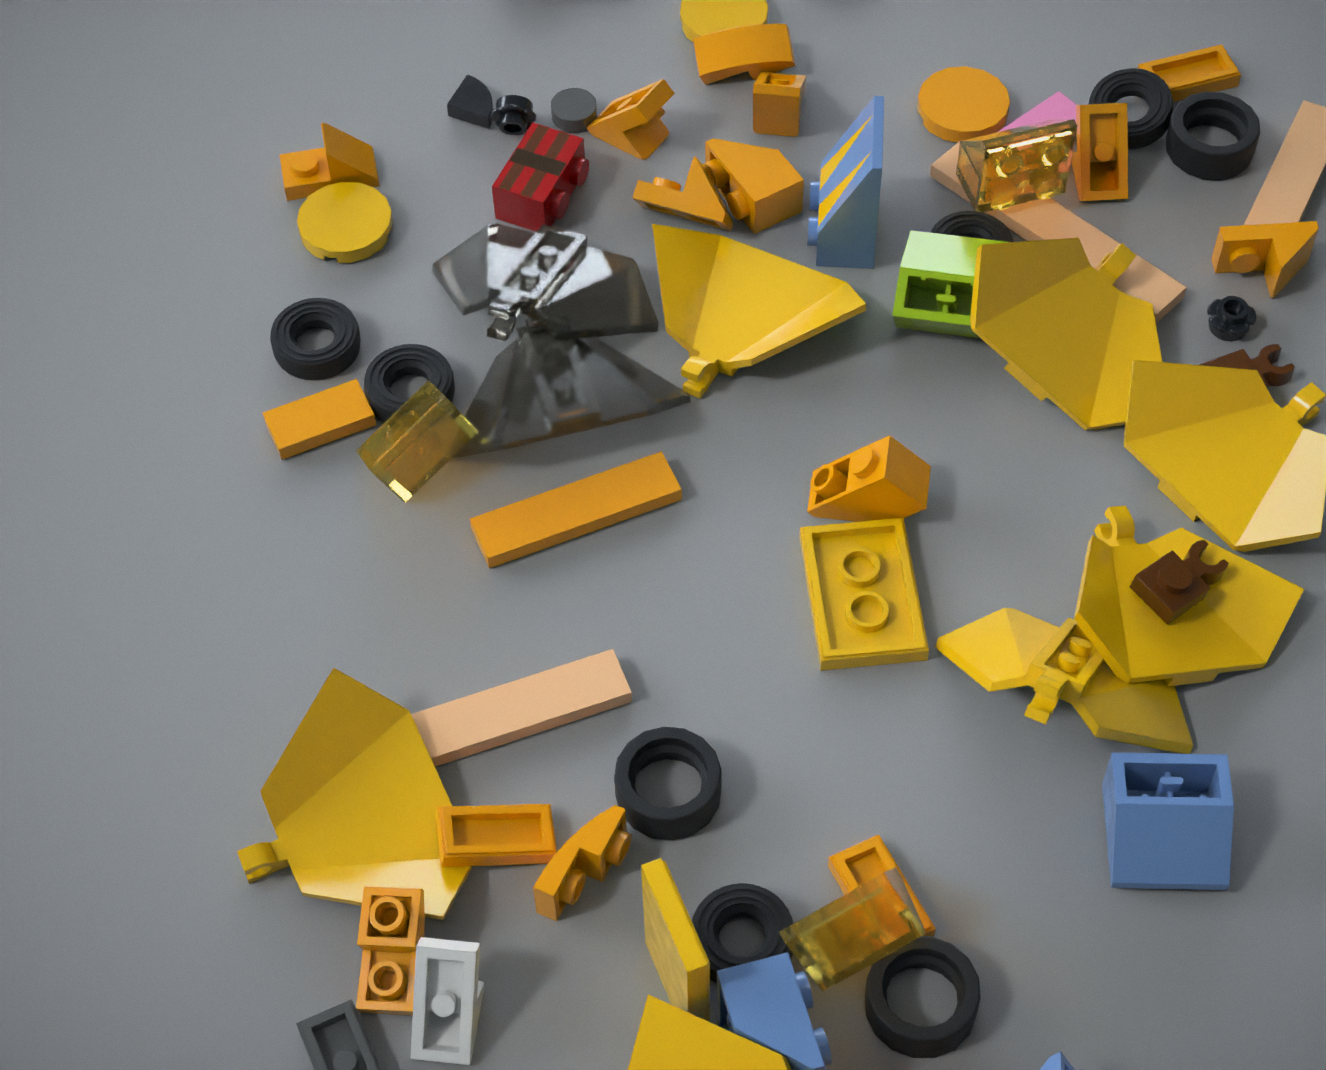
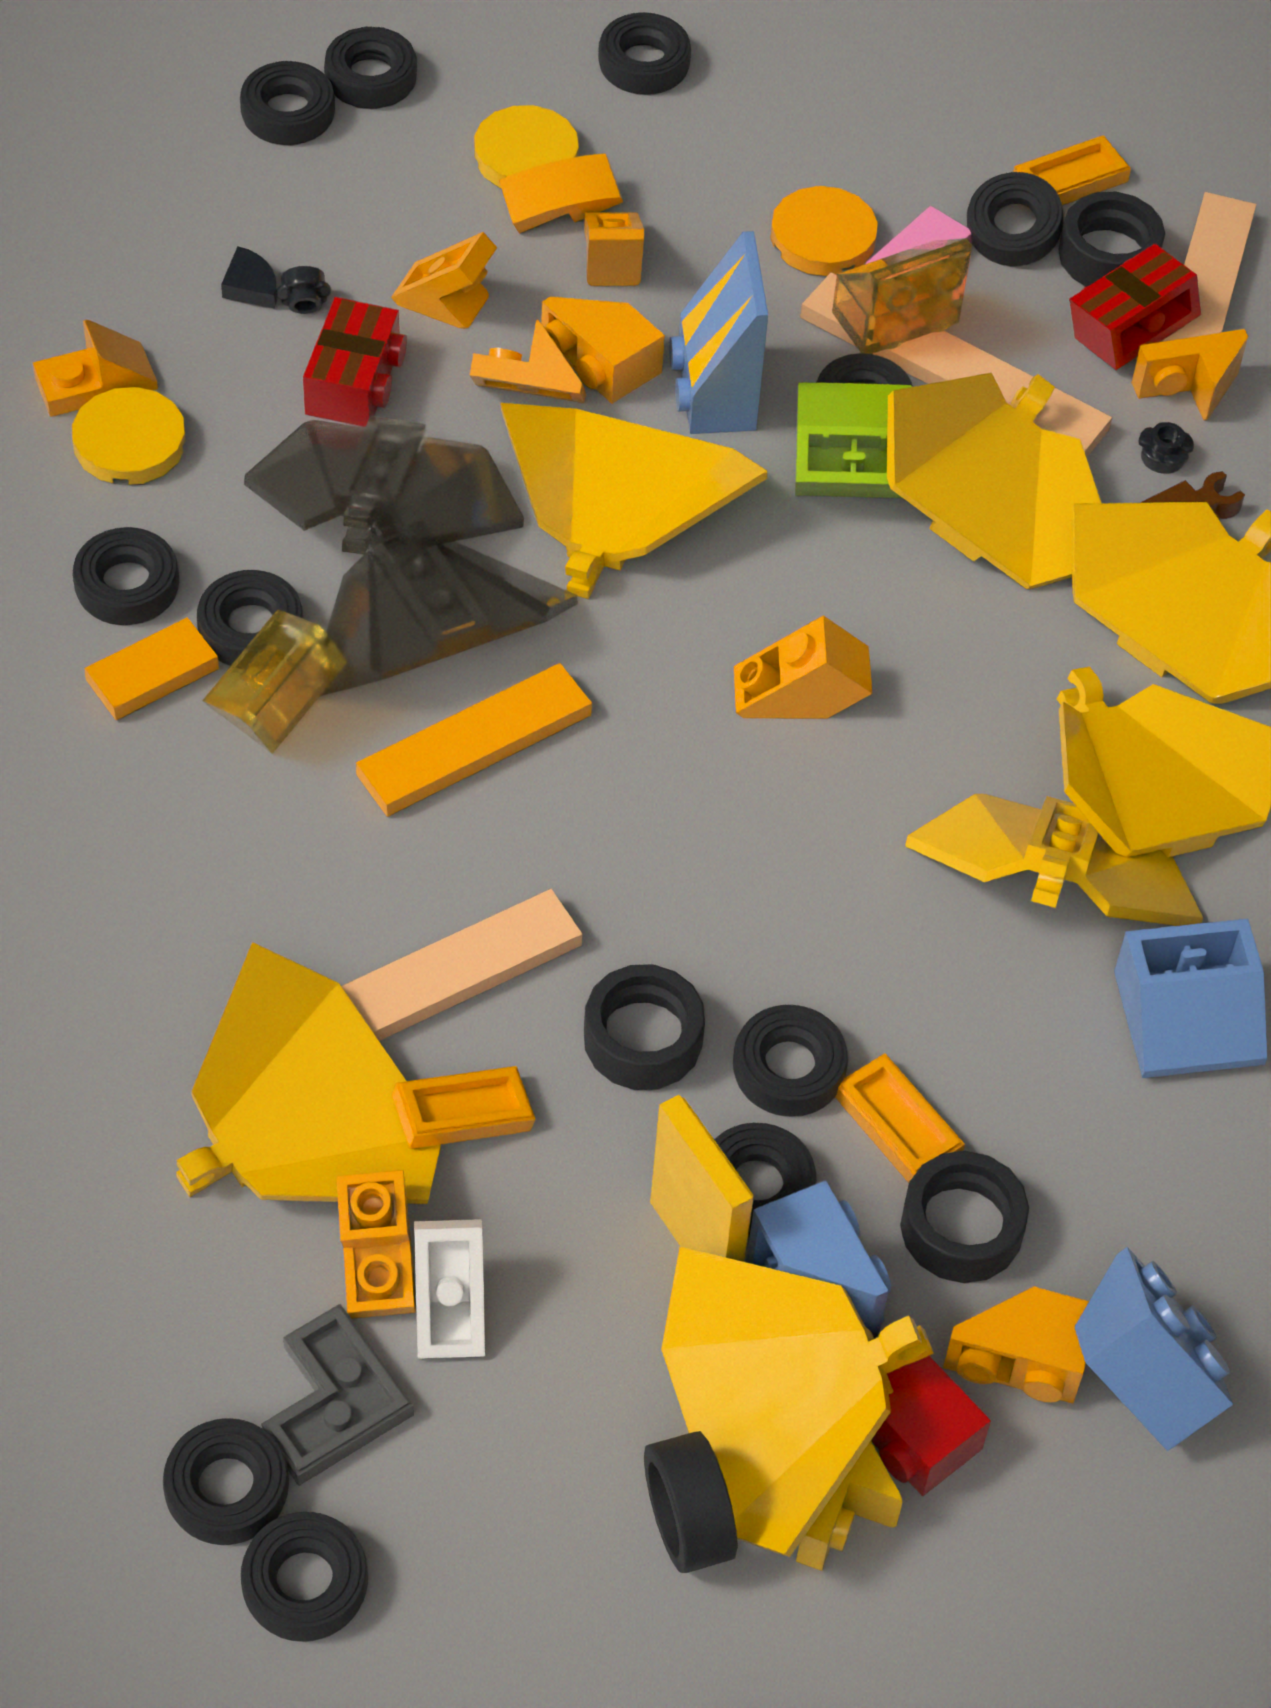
camera: 15 degrees left, 0 degrees up
(573, 109) = (372, 277): dark grey tile -> none
(584, 854) = (567, 1119): light orange slope -> none
(799, 797) = (785, 1095): none -> black tyre
(855, 930) = (887, 1152): clear yellow slope -> none
(863, 594) = (816, 796): yellow tile -> none
(1101, 152) = (995, 273): light orange slope -> none
(1175, 584) = (1160, 745): reddish brown plate -> none
(1222, 192) = (1135, 306): none -> red brick

